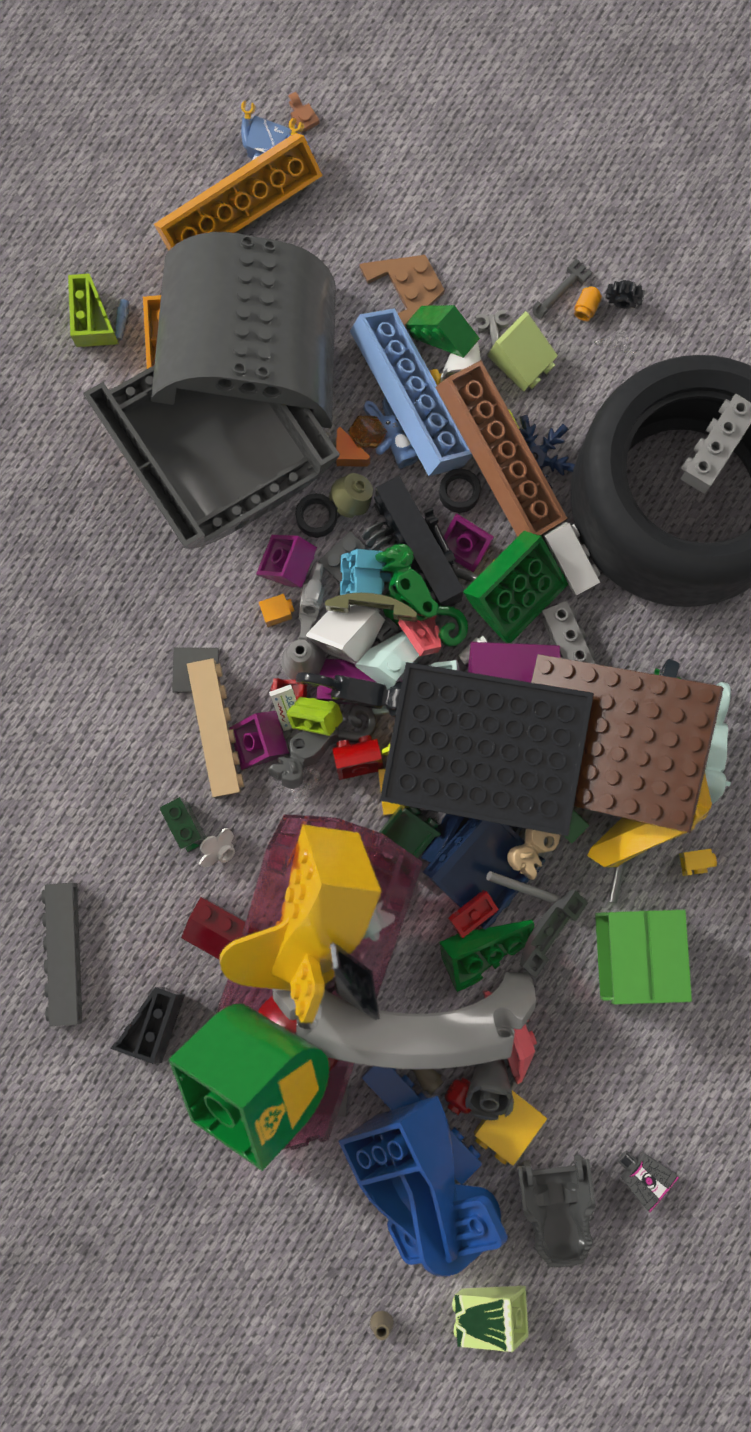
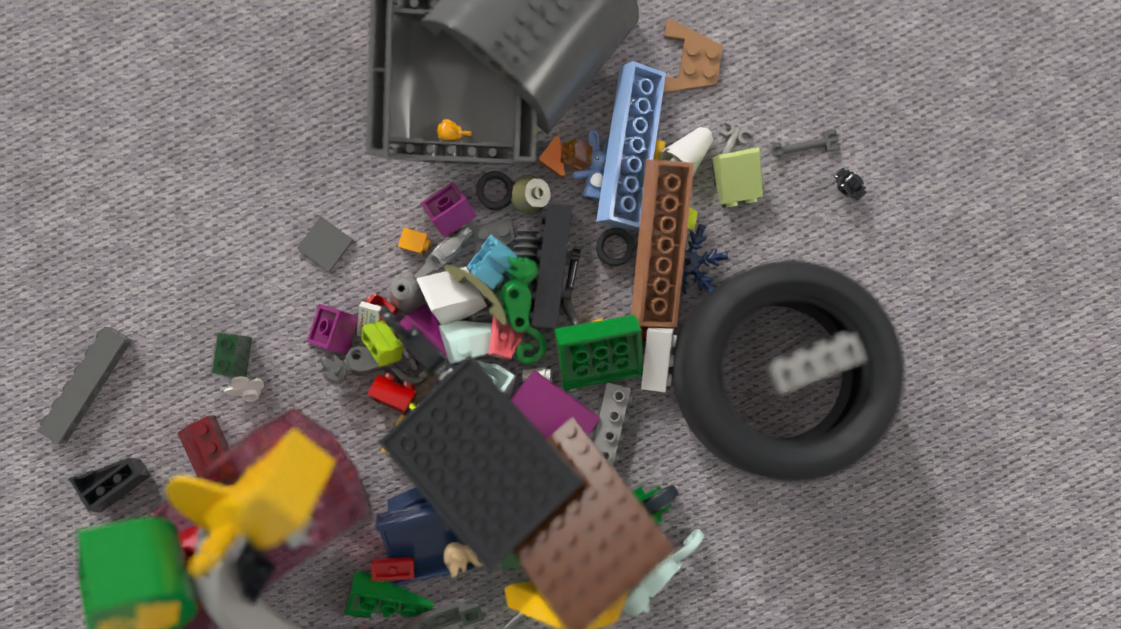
camera: 30 degrees right, 5 degrees up
(214, 728) = (306, 298): tan brick -> none
(242, 484) = (450, 131): none -> light orange piece
(411, 829) = (383, 479): dark green panel -> none
(442, 328) = (689, 115): green wedge -> none
(467, 542) = (589, 291): magenta slope -> none
(522, 887) = (442, 576): light grey bar -> none
(587, 303) = (817, 170): light orange brick -> none

